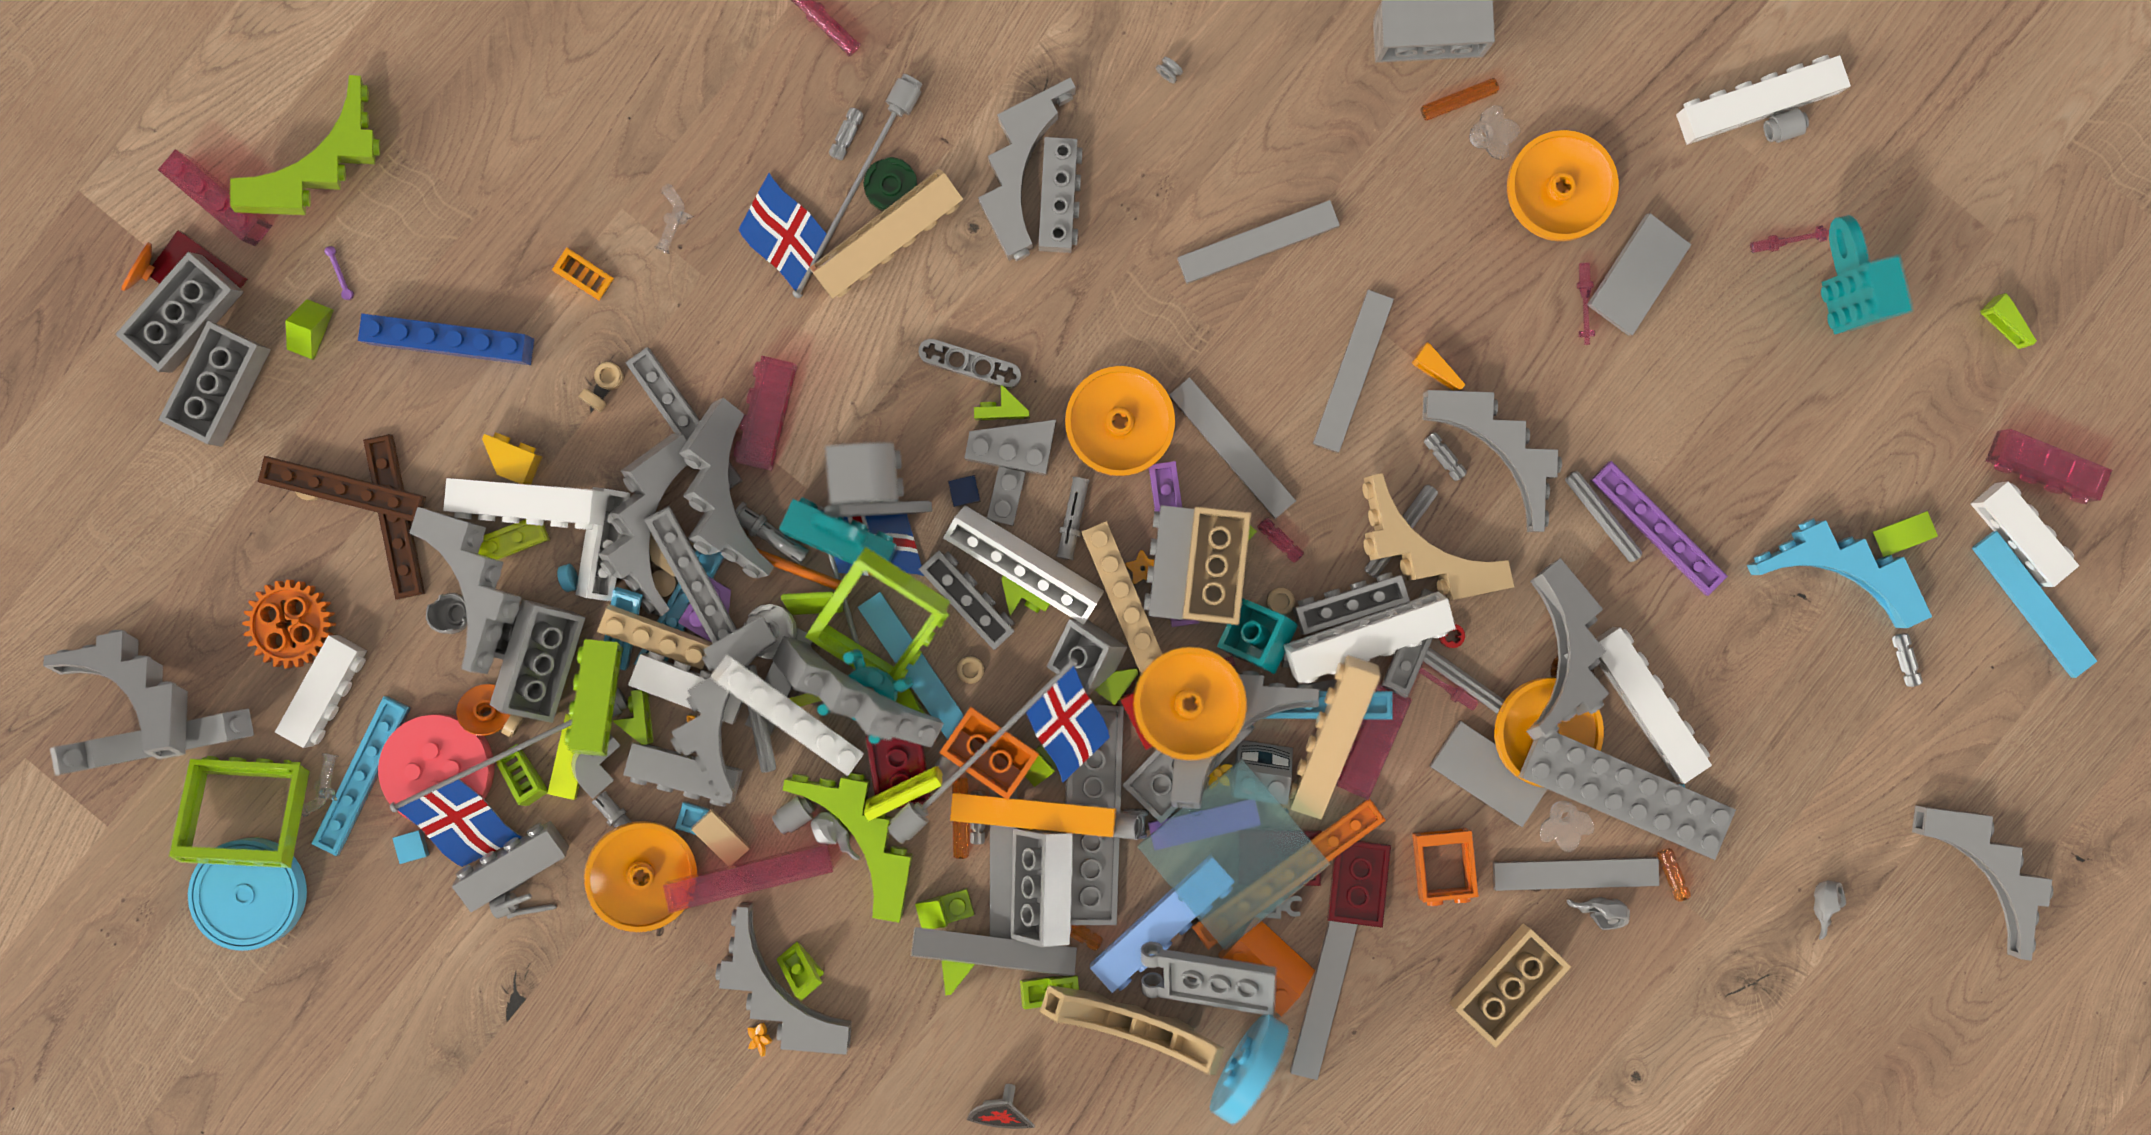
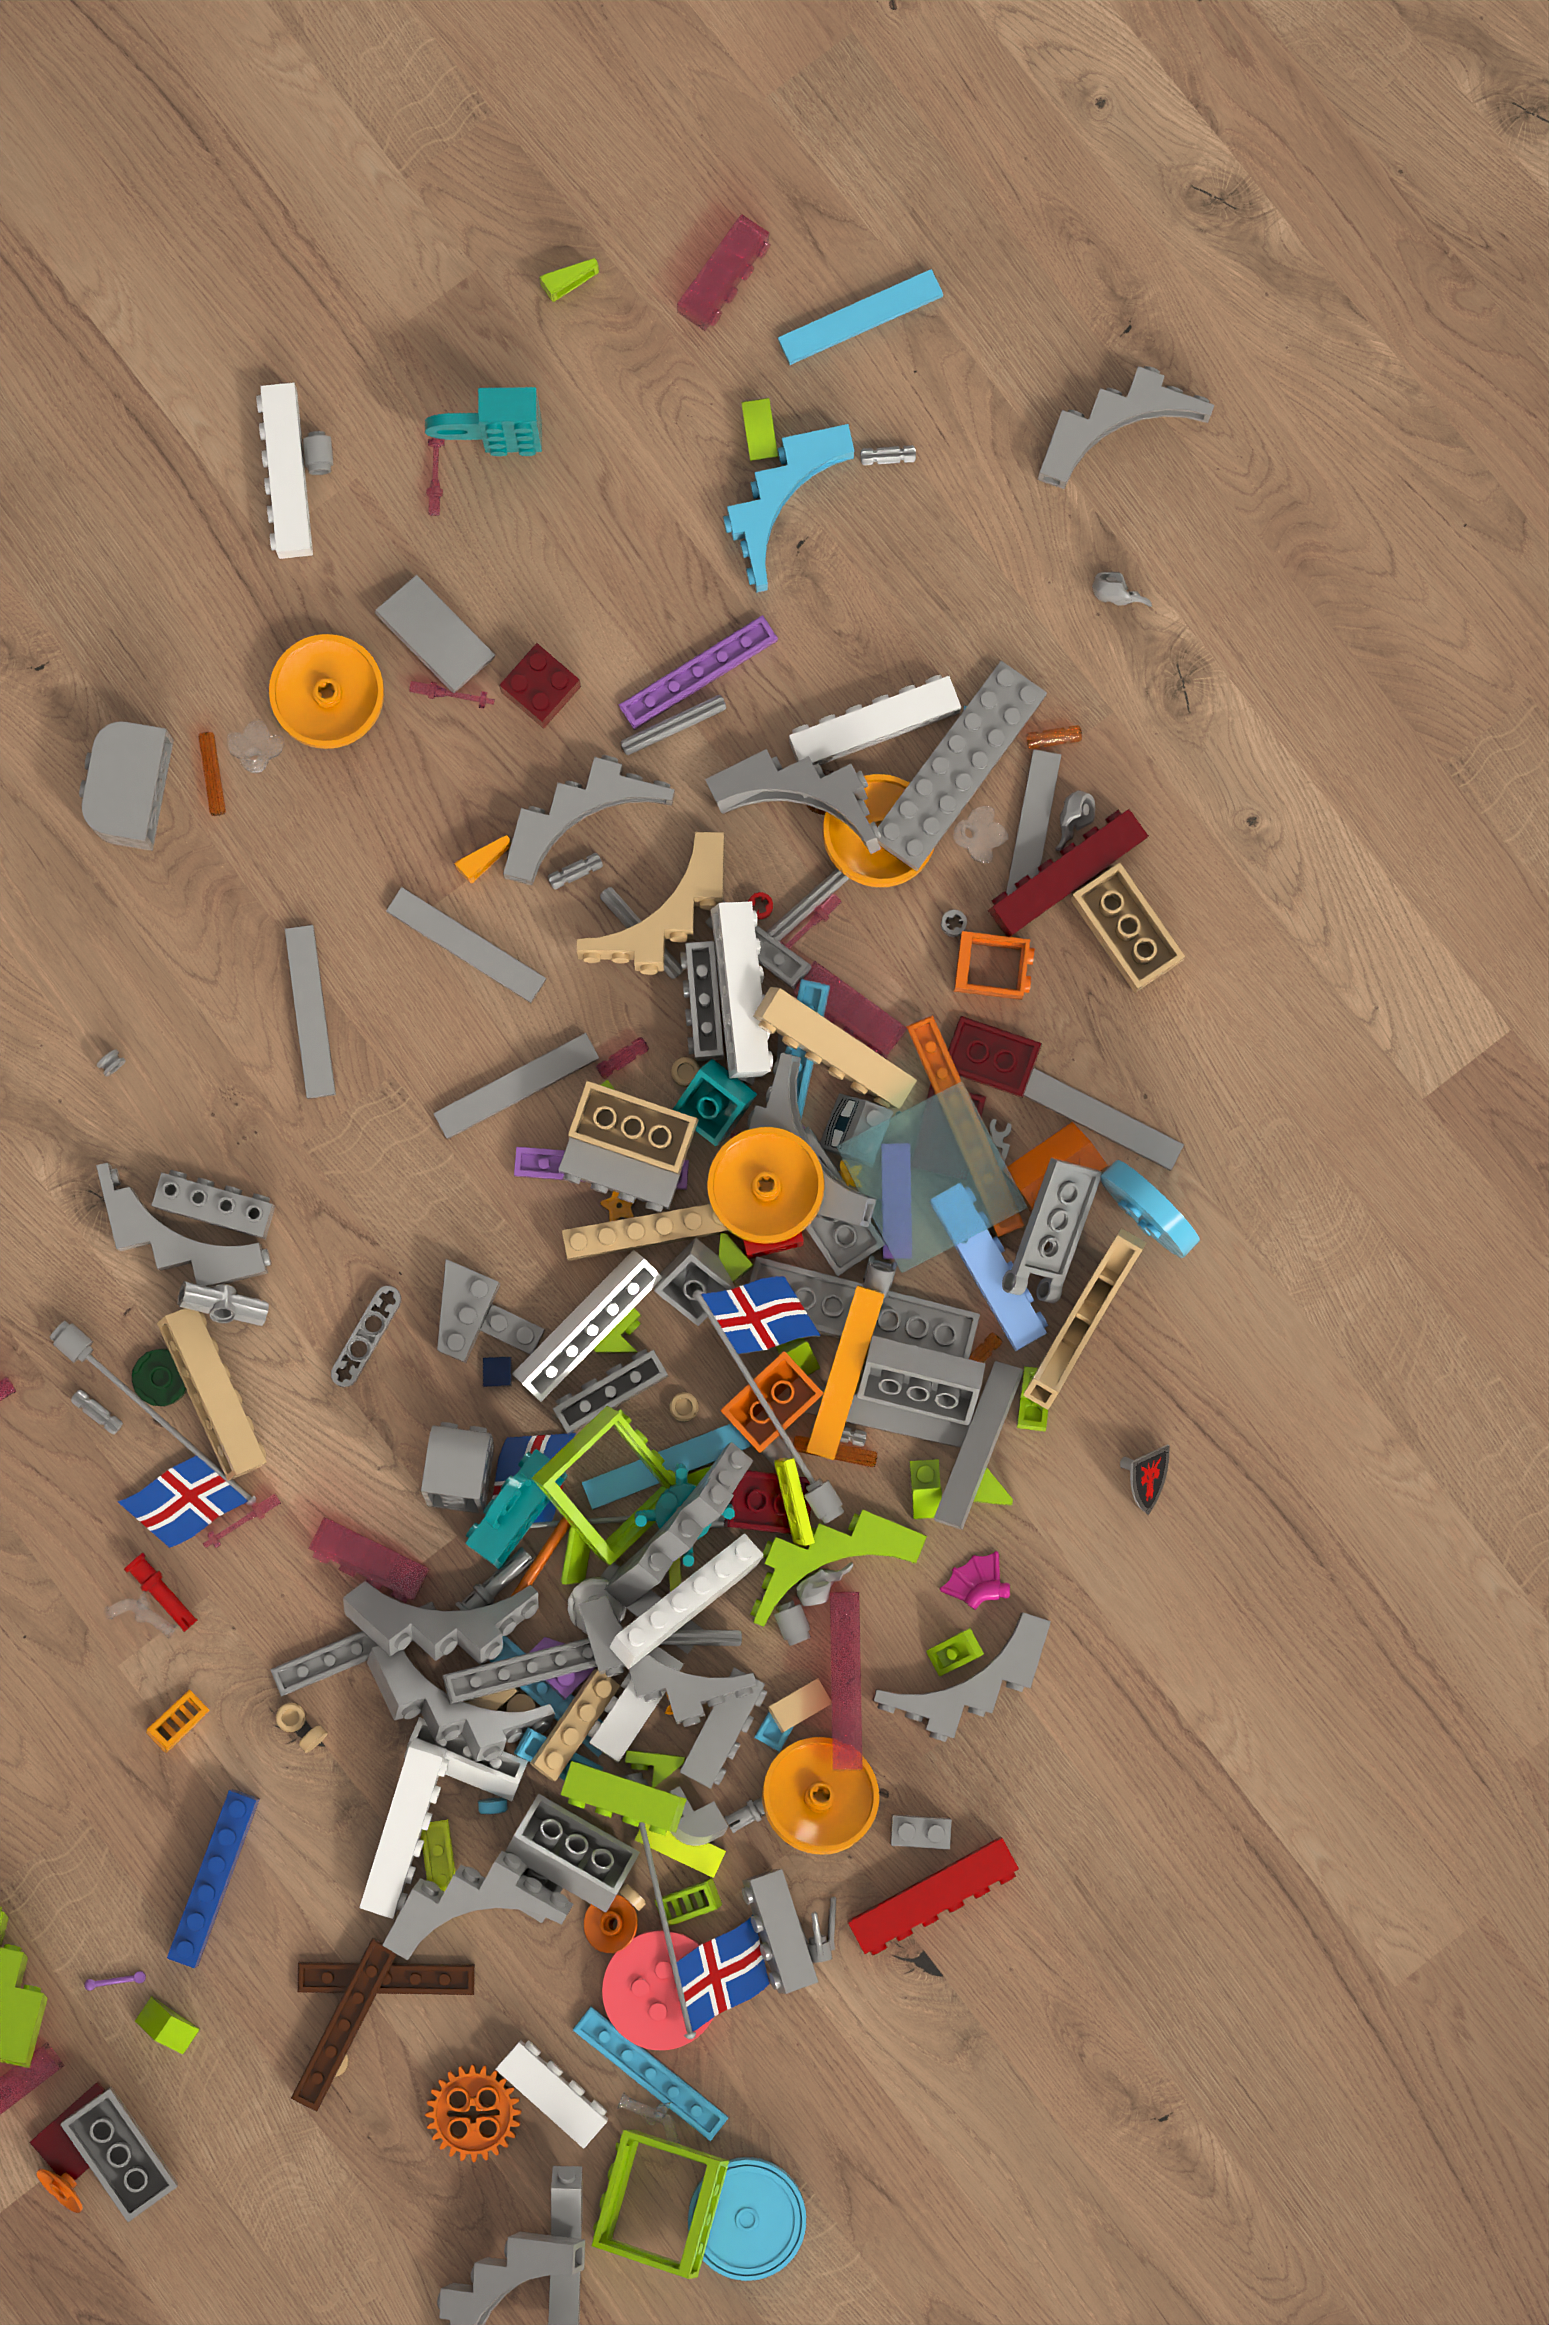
camera: 80 degrees left, 5 degrees down
(214, 384) = (203, 2134): light grey brick -> none
(410, 846) = (736, 2036): medium azure tile -> none
(447, 614) = (501, 1938): light grey hair -> none
(512, 461) = (356, 1838): yellow slope -> none
(574, 999) = (933, 1895): none -> red brick
(629, 975) = (920, 1831): none -> light grey brick
(702, 220) = (151, 1581): none -> red pin
(759, 1038) = (1017, 1711): light orange plant -> none
(788, 302) = (258, 1510): none -> clear pink piece
(870, 975) = (977, 1581): none -> dark pink arm
(881, 508) = (495, 1458): light grey tile -> none
(968, 224) = (223, 1303): none -> light grey piece
(1009, 409) = (423, 1305): lime slope -> none
(1070, 529) = (521, 1251): light grey pin -> none
(1120, 421) = (462, 1194): light orange dish -> none
(1470, 825) = (950, 915): none -> light grey bush
(1477, 768) = (902, 910): light grey tile -> none
(1547, 917) = (1067, 873): none -> dark red brick
(1613, 383) = (540, 685): none -> dark red brick
(2025, 533) = (786, 311): white brick -> none

